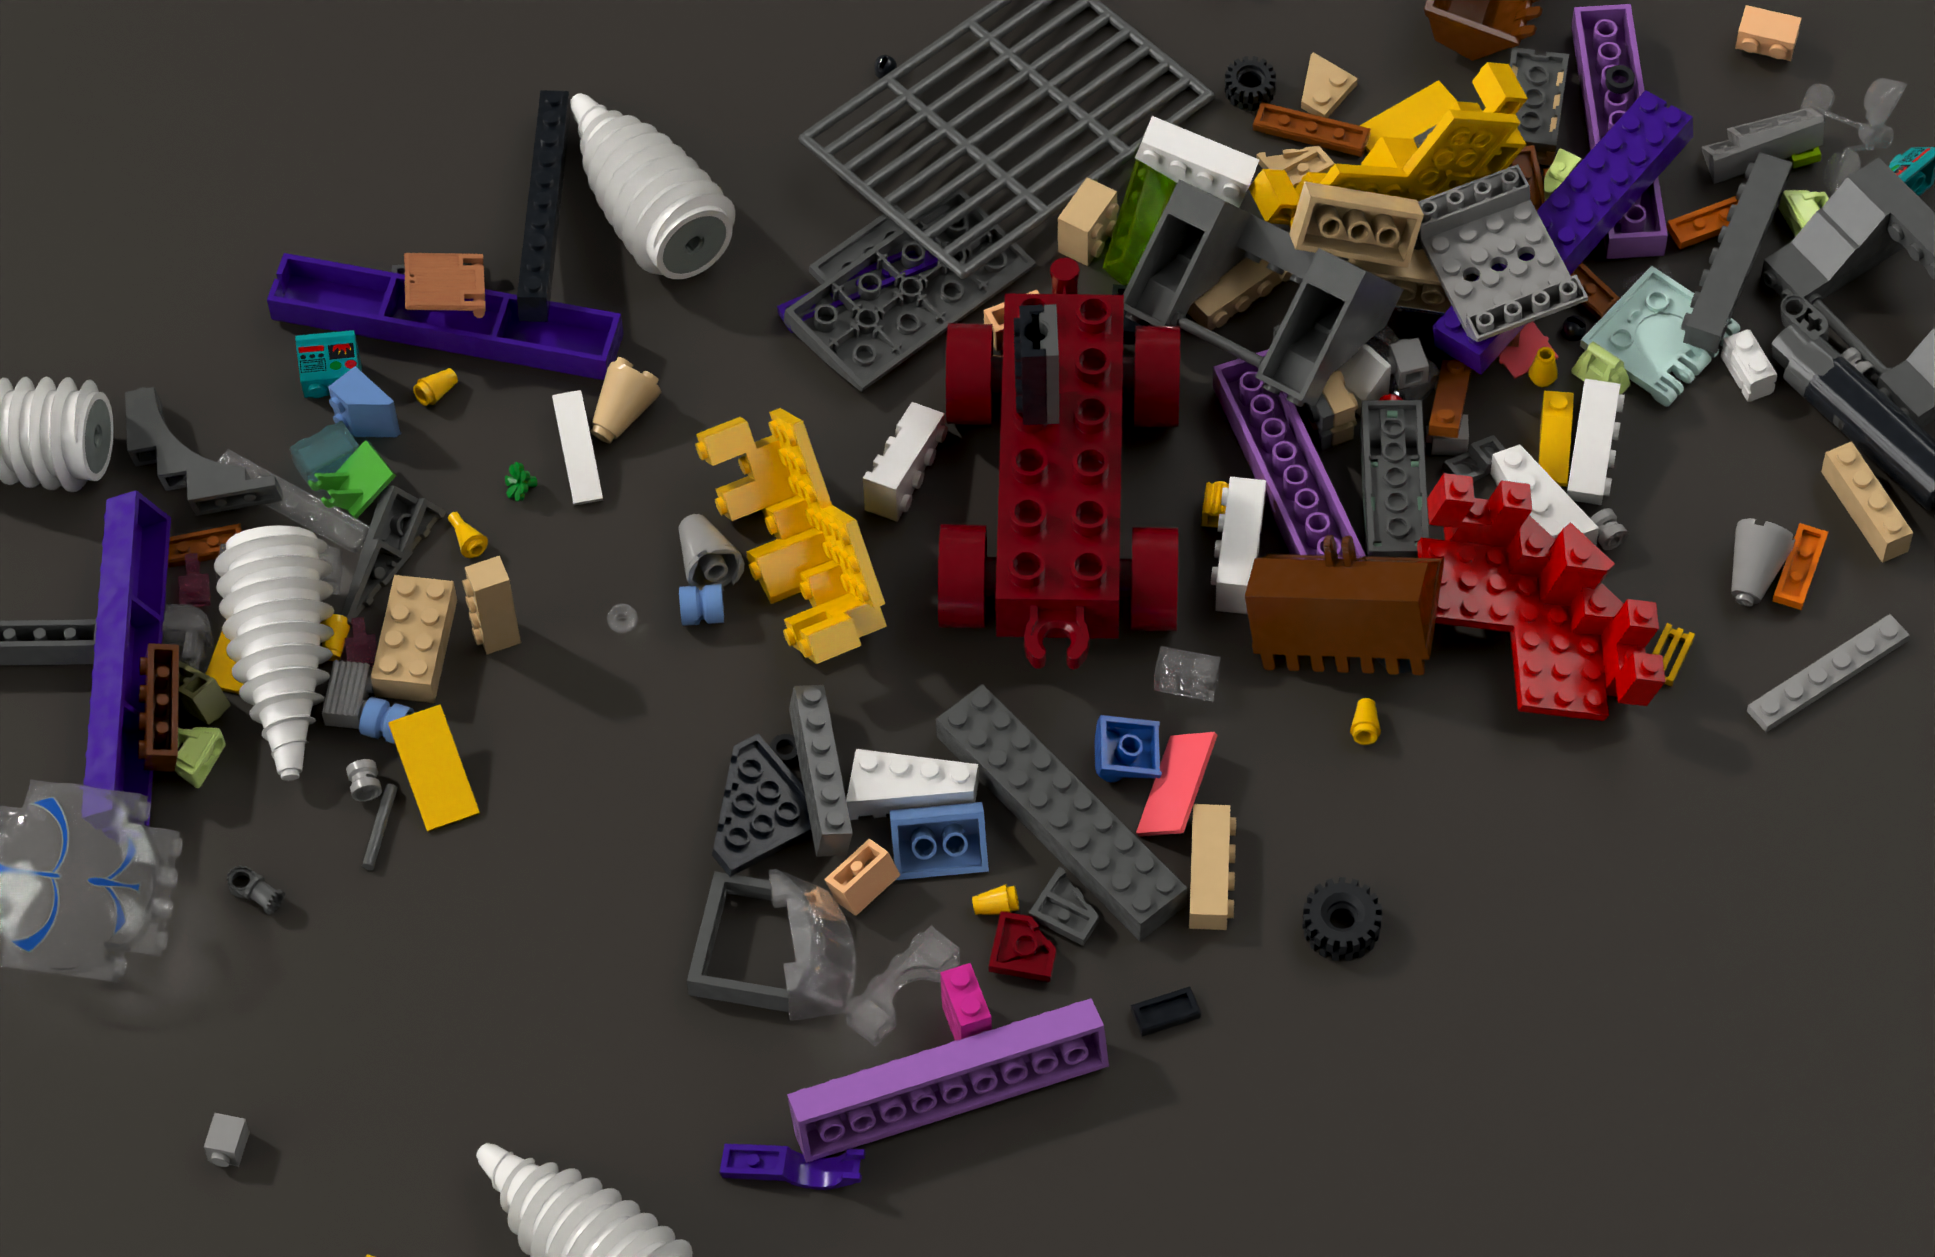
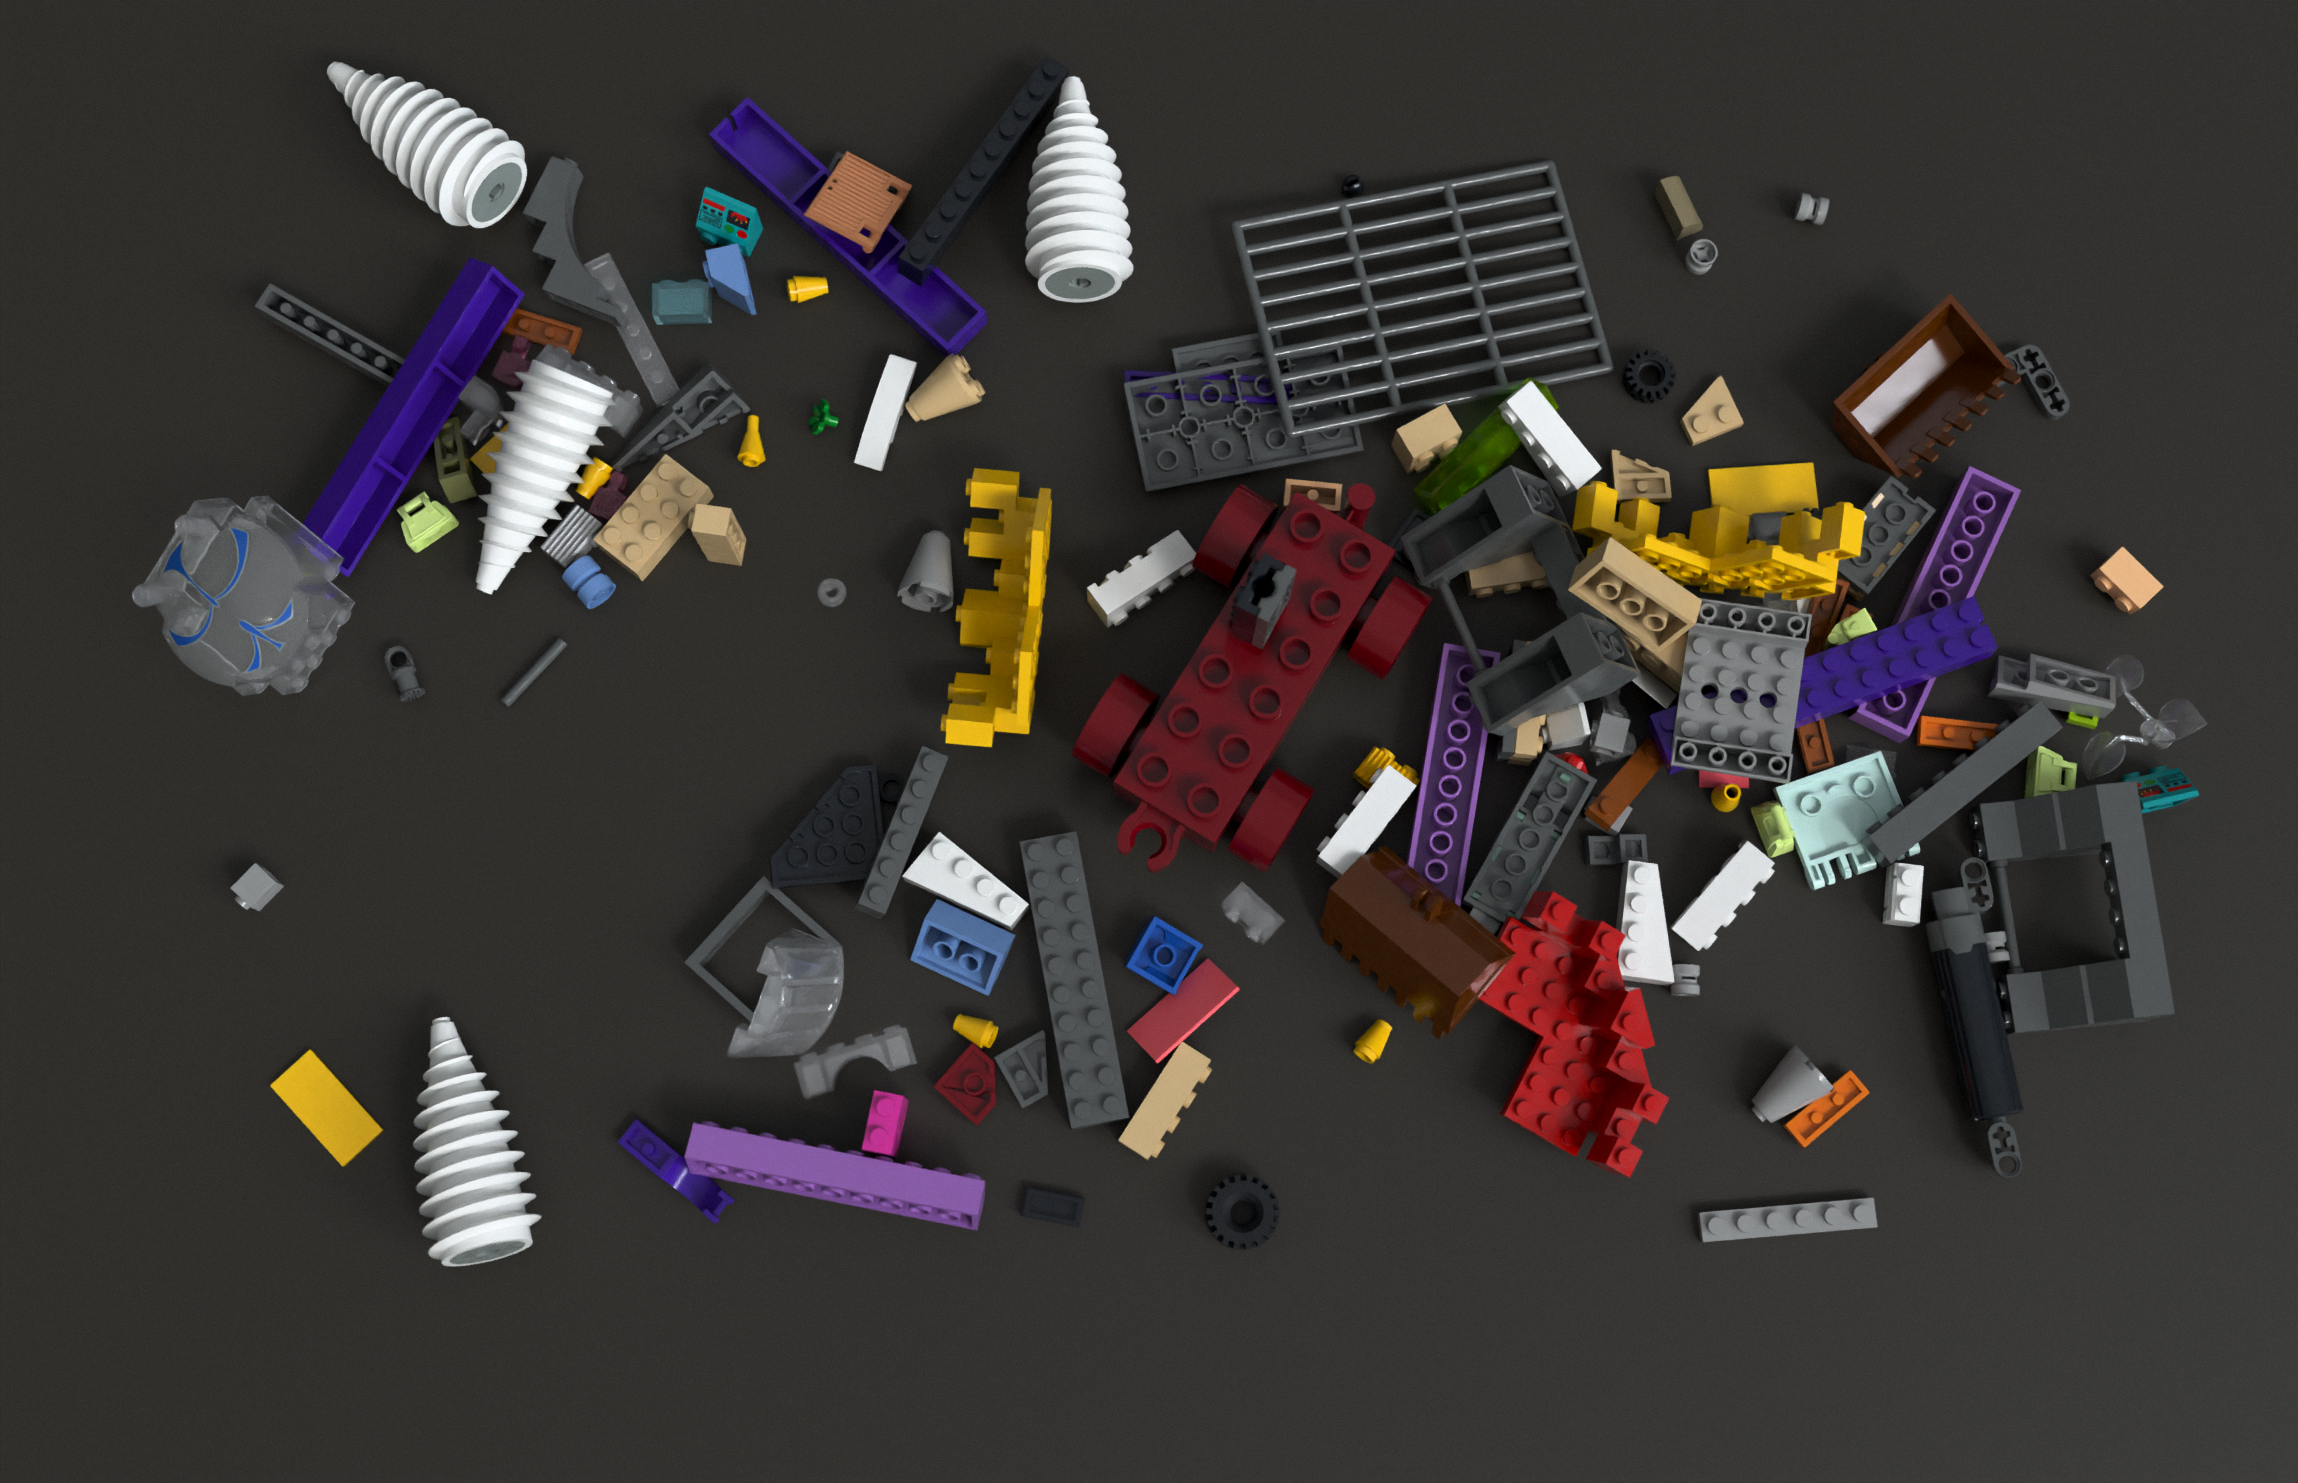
camera: 25 degrees right, 20 degrees up
(160, 707) = (408, 475): reddish brown brick -> none
(356, 481) = (693, 344): bright green plate -> none
(364, 781) = (542, 624): light grey wheel -> none
(433, 767) = (600, 647): yellow piece -> none
(701, 604) = (901, 620): medium blue wheel -> none
(862, 877) = (878, 948): light nougat brick -> none
(1311, 129) = (1674, 450): dark orange tile -> none
(1556, 434) = (1695, 868): yellow slope -> none
(1619, 70) = (1971, 554): black piece -> none
(1677, 636) = (1684, 1111): yellow tile -> none
(1867, 502) = (1920, 1083): tan brick -> none

